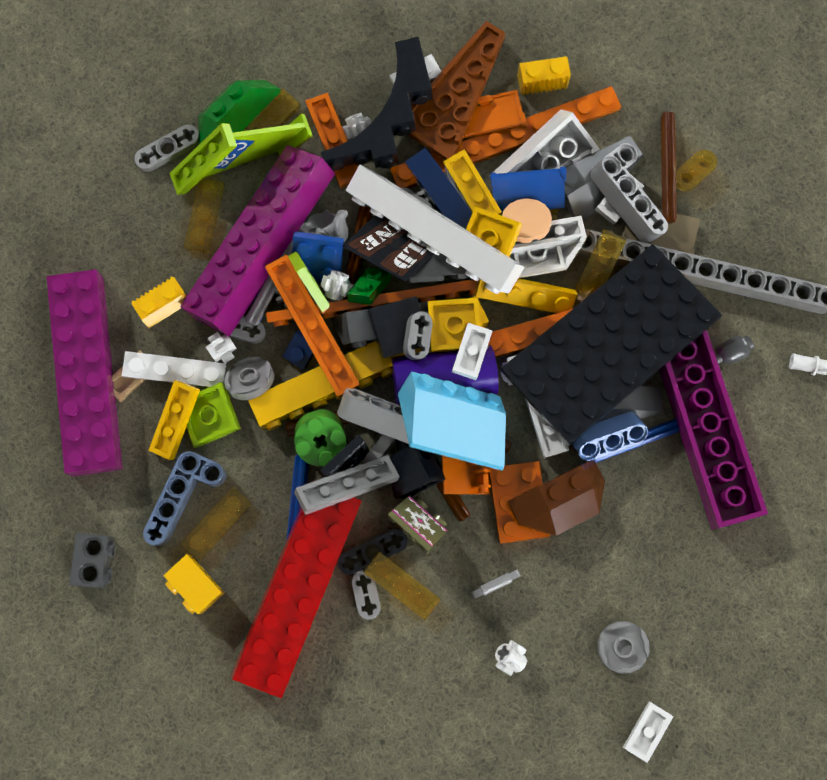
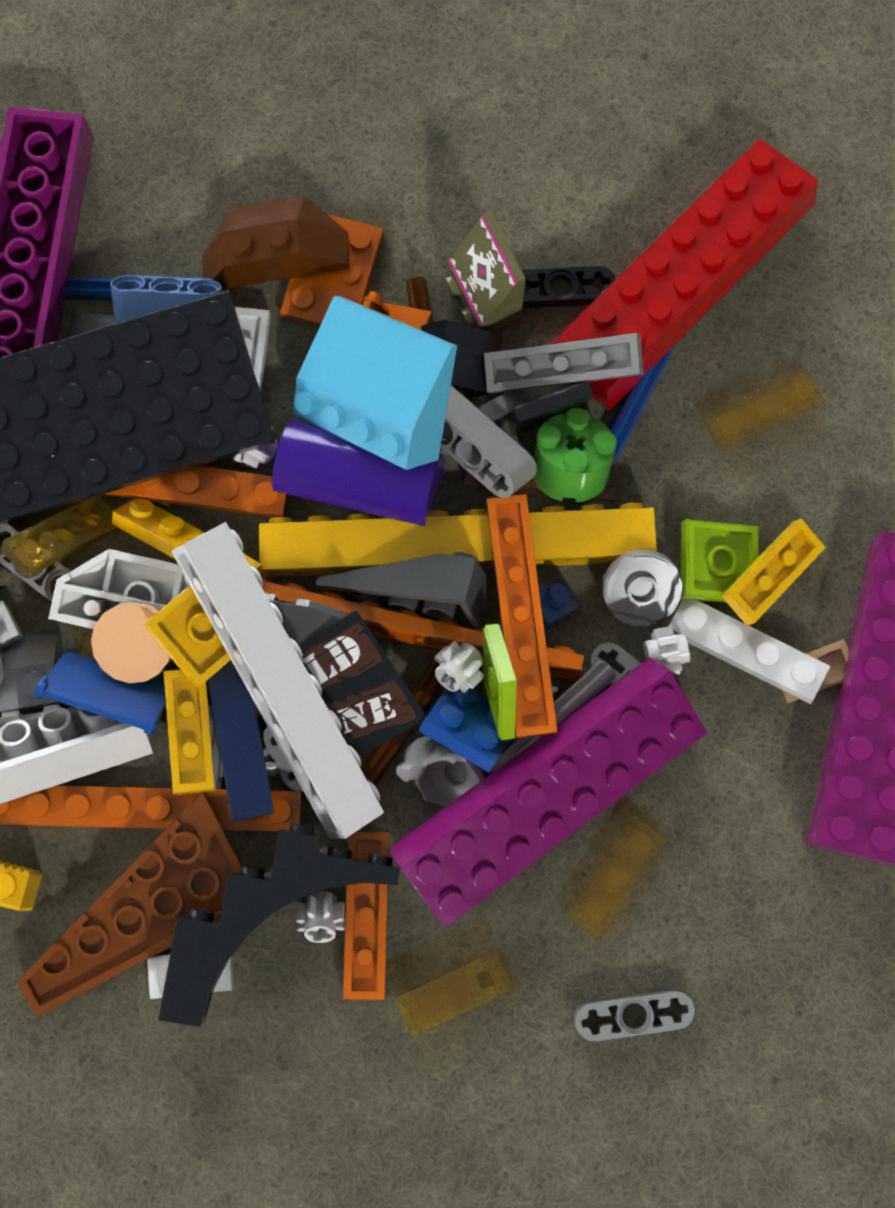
camera: 155 degrees left, 0 degrees up
(159, 302) = (733, 758): yellow brick -> none
(179, 501) = (807, 460): sand blue beam -> none
(193, 584) = (825, 333): yellow brick -> none
(227, 150) = (546, 949): lime piece -> none
(236, 106) = (507, 1030): green wedge -> none
(359, 596) = (600, 237): light grey beam -> none
(369, 286) = (416, 644): green plate -> none
(390, 325) = (394, 557): black tile -> none
(402, 585) = (540, 224): clear yellow plate -> none
(411, 335) = (374, 530): light grey beam -> none
(450, 322) = (311, 531): yellow plate -> none
(472, 351) = (305, 471): white plate -> none
(495, 584) = (413, 172): light grey piece -> none
(500, 114) = (92, 846): orange door -> none
(510, 658) = (443, 85): white gear -> none
(623, 639) = (283, 56): light grey tile -> none

